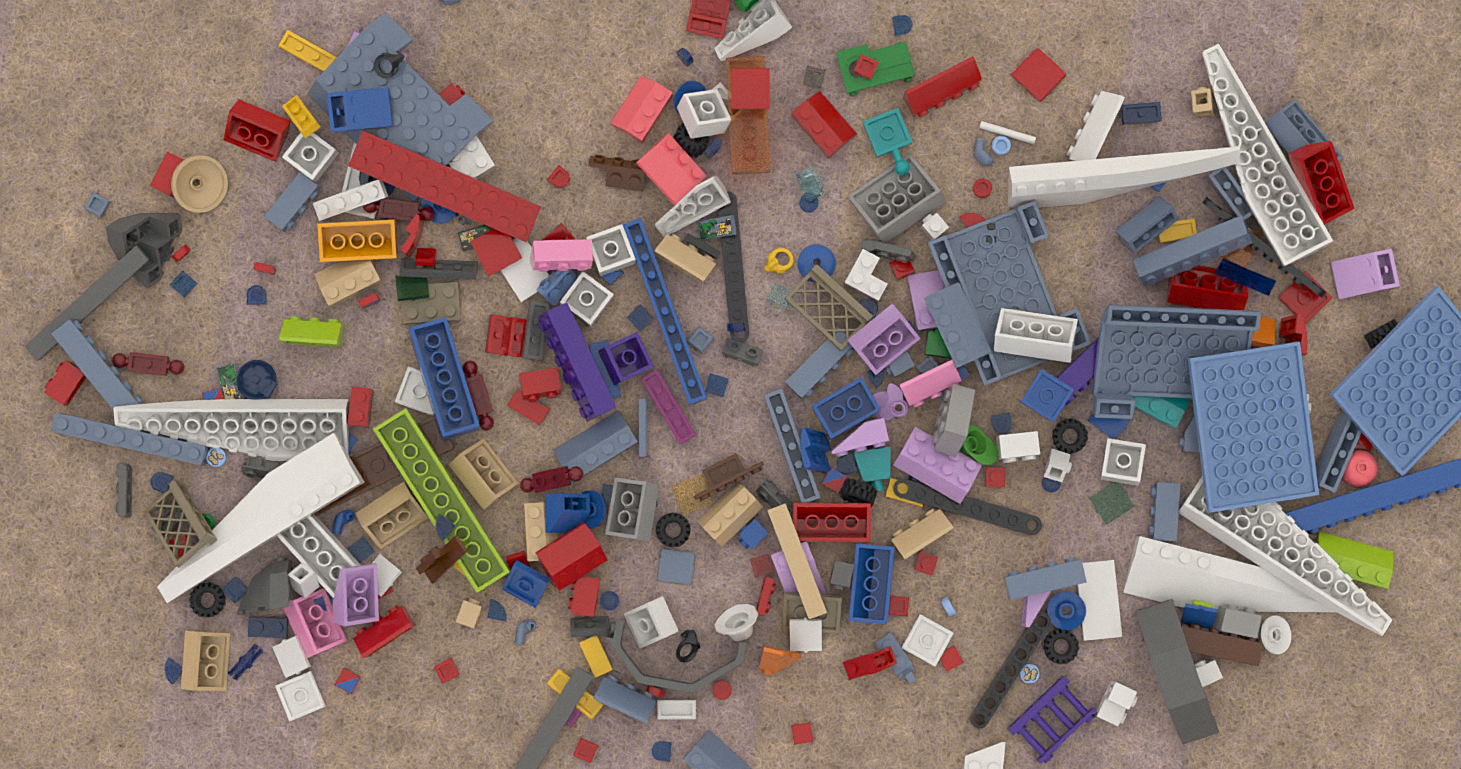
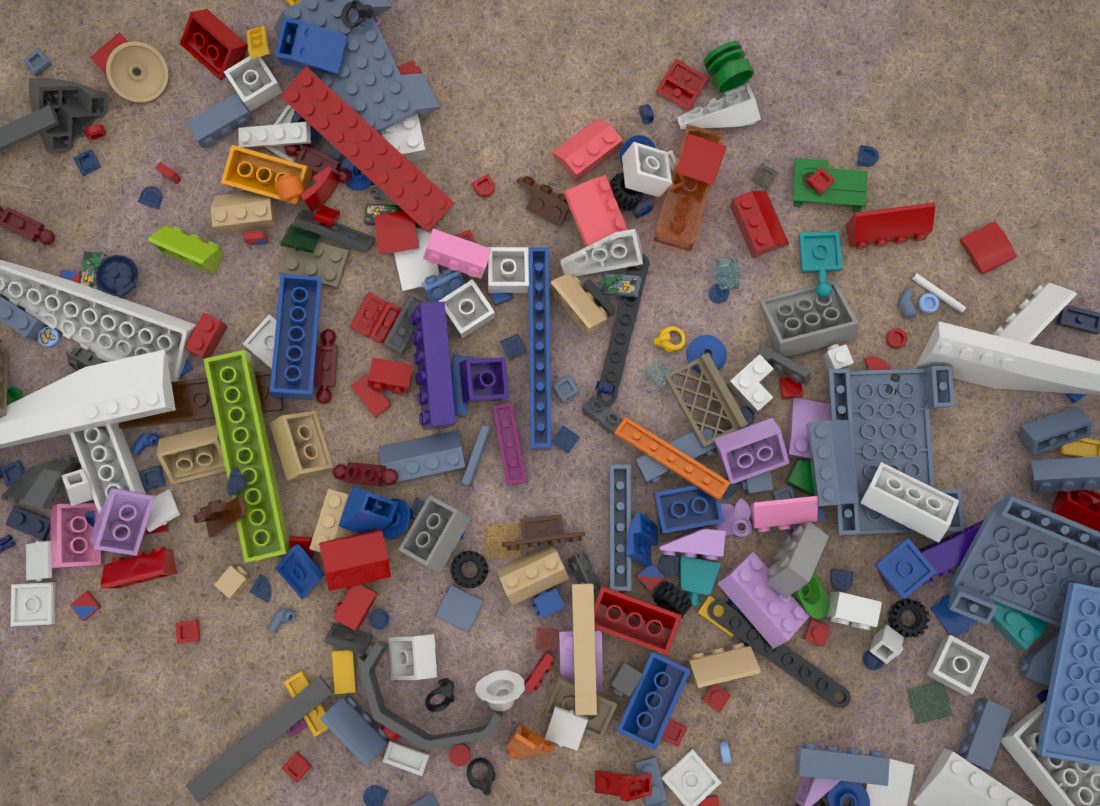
camera: 20 degrees right, 5 degrees down
(387, 246) = (289, 187): none -> orange head
(751, 706) = (484, 784): none -> black piece
(816, 370) = (672, 458): none -> orange tile

